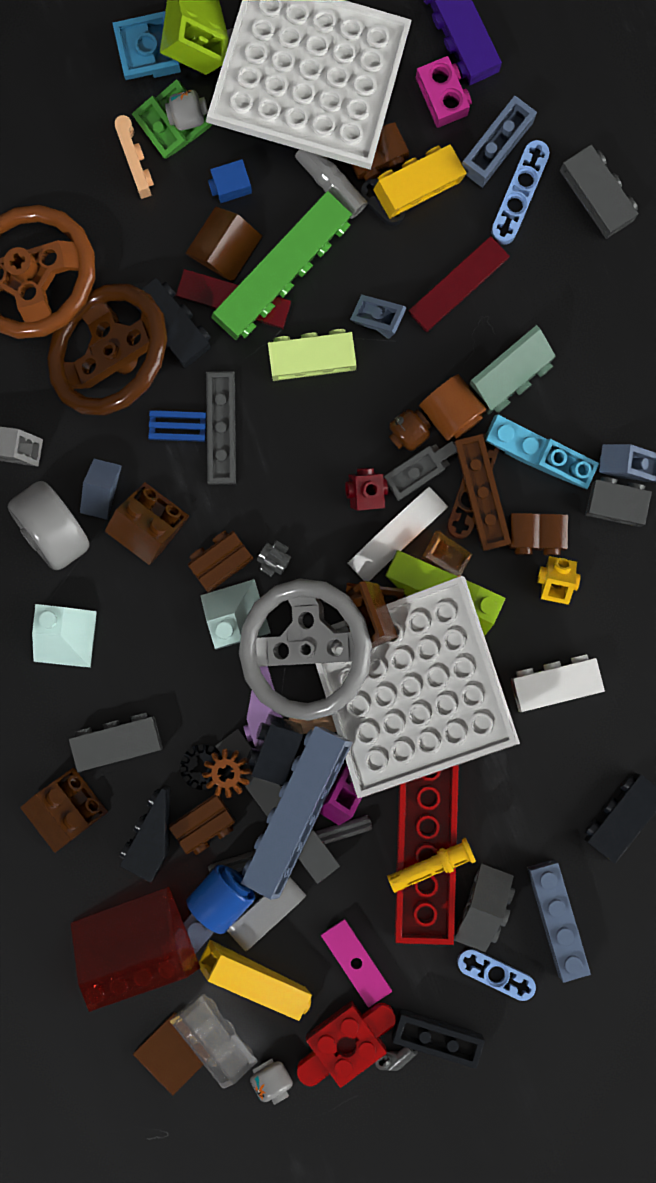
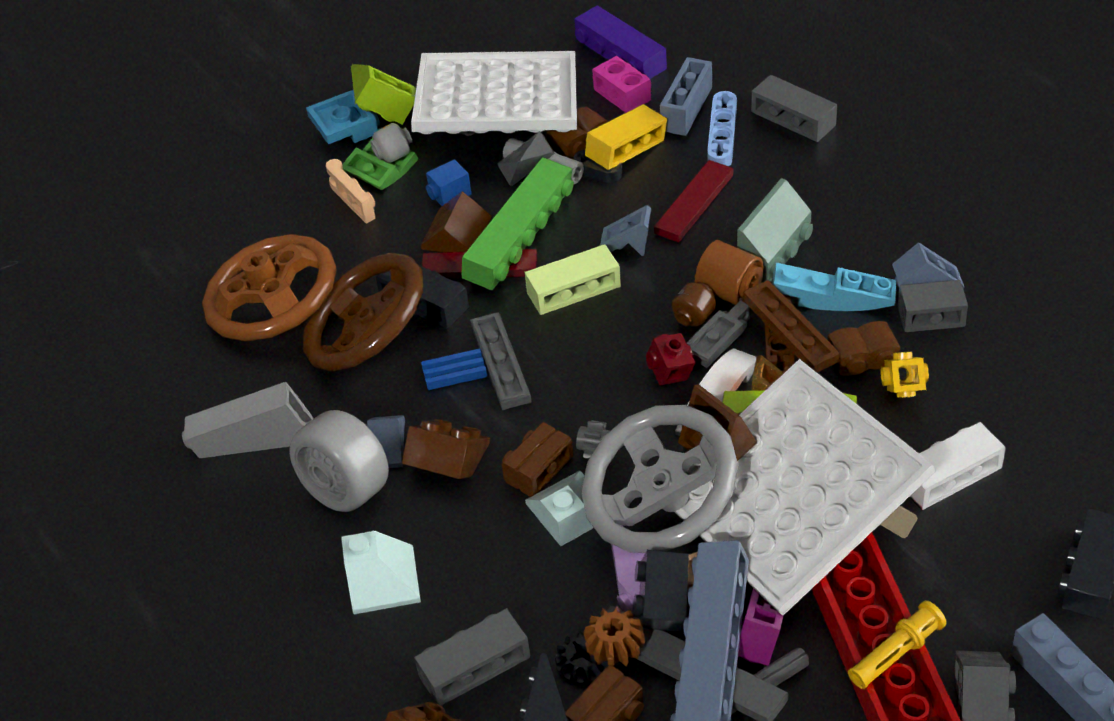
camera: 10 degrees left, 40 degrees down
(313, 178) = (525, 158): none -> dark grey slope

